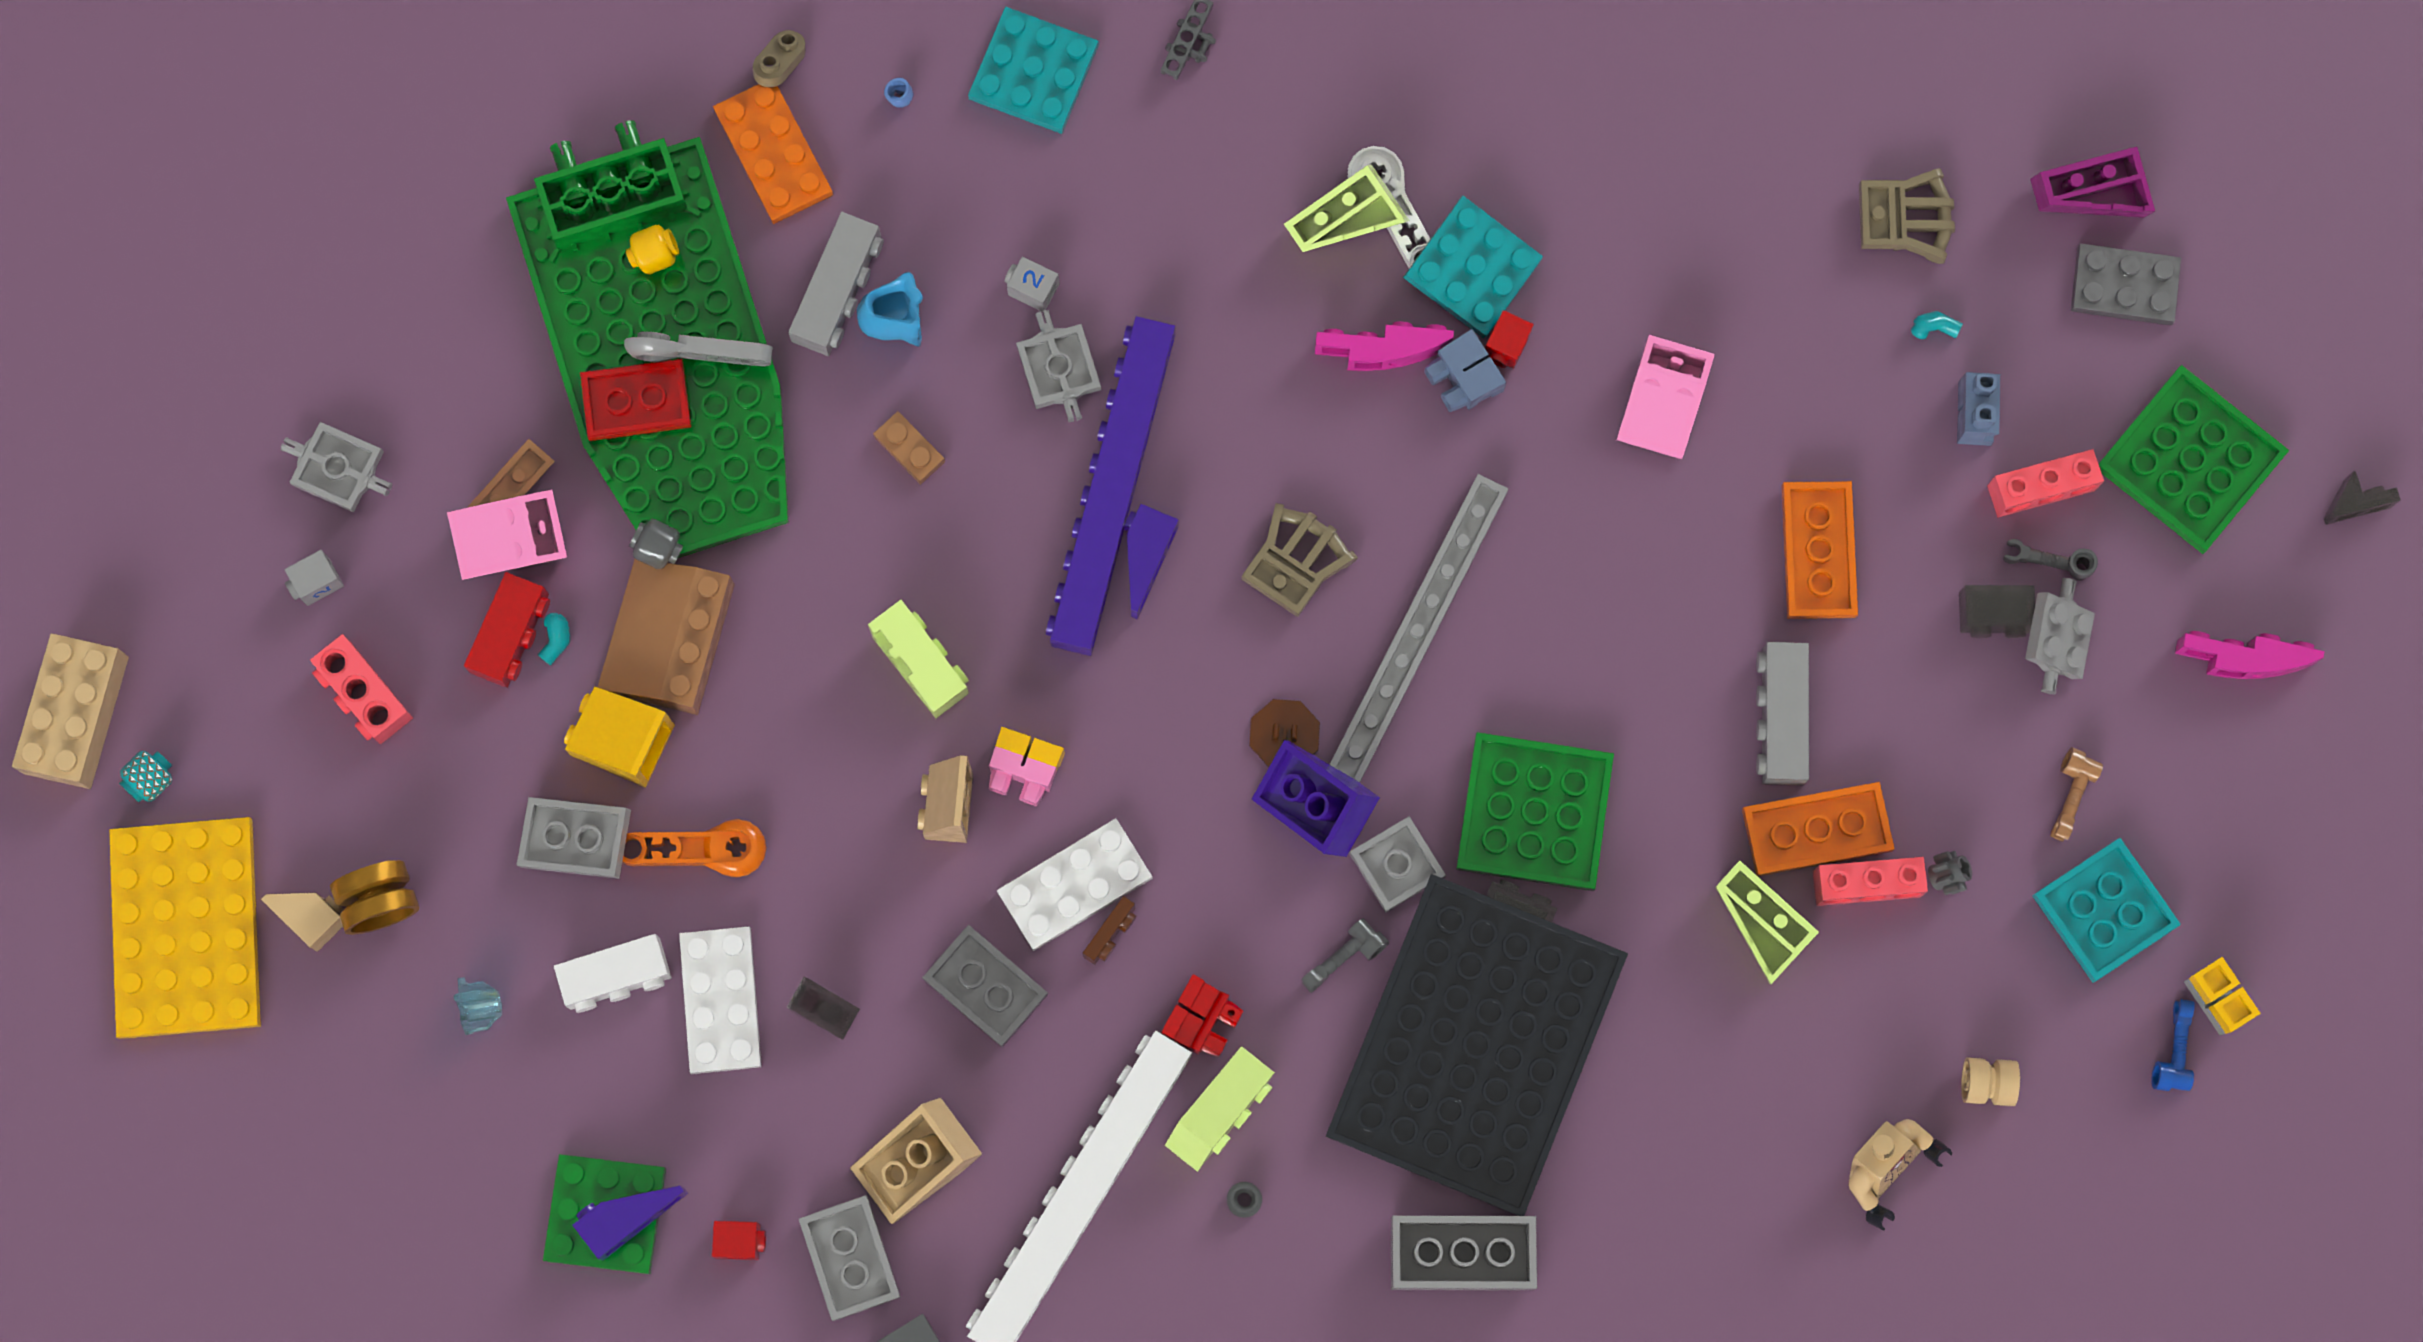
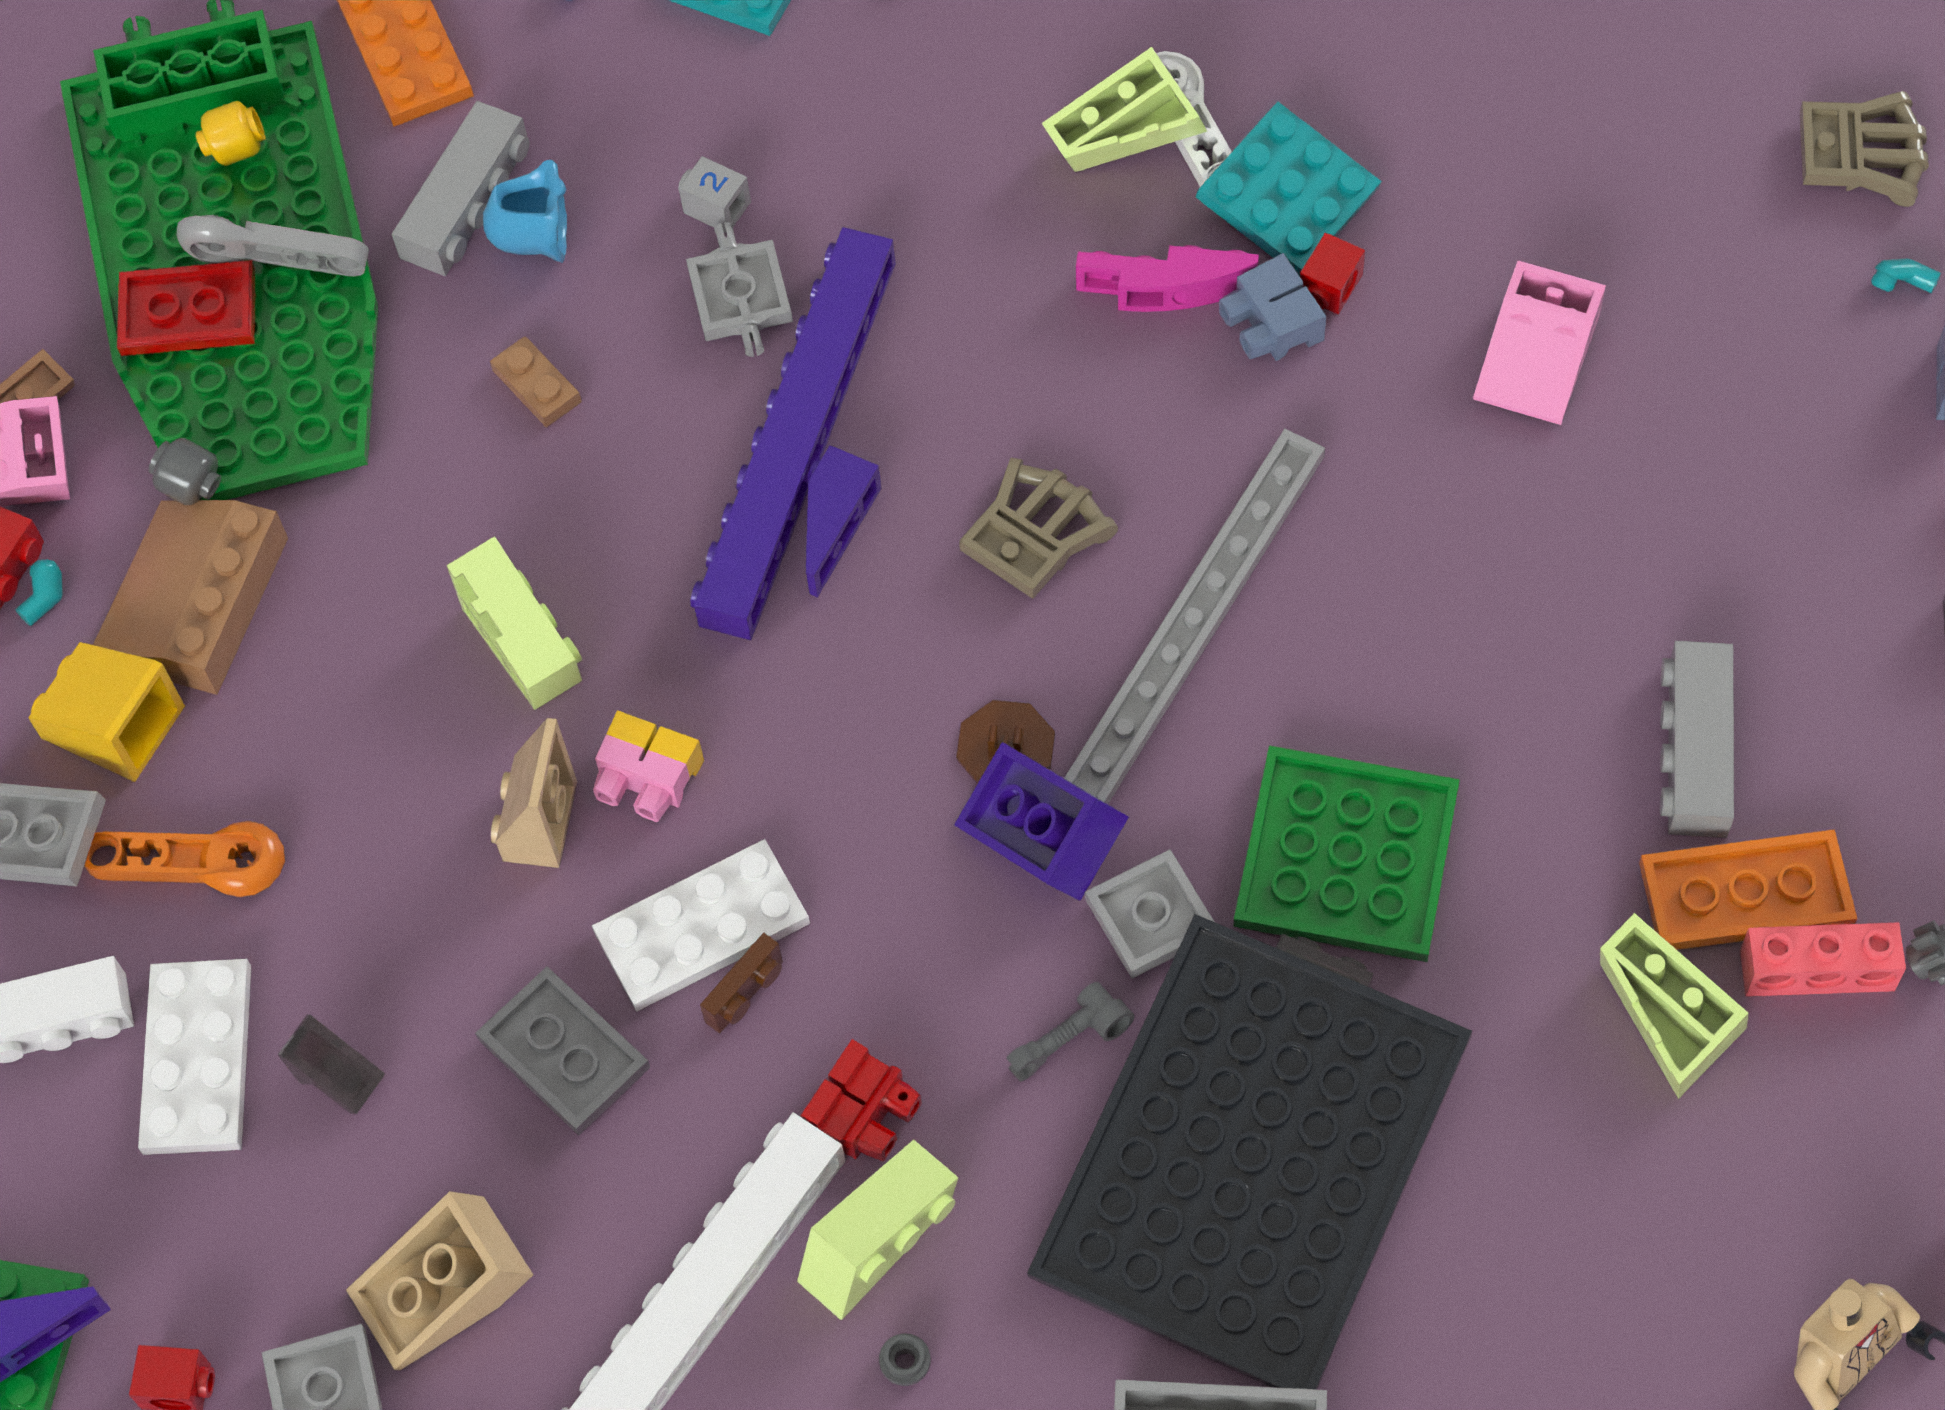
camera: 10 degrees right, 15 degrees down
(1819, 550) = (1748, 538): orange plate -> none

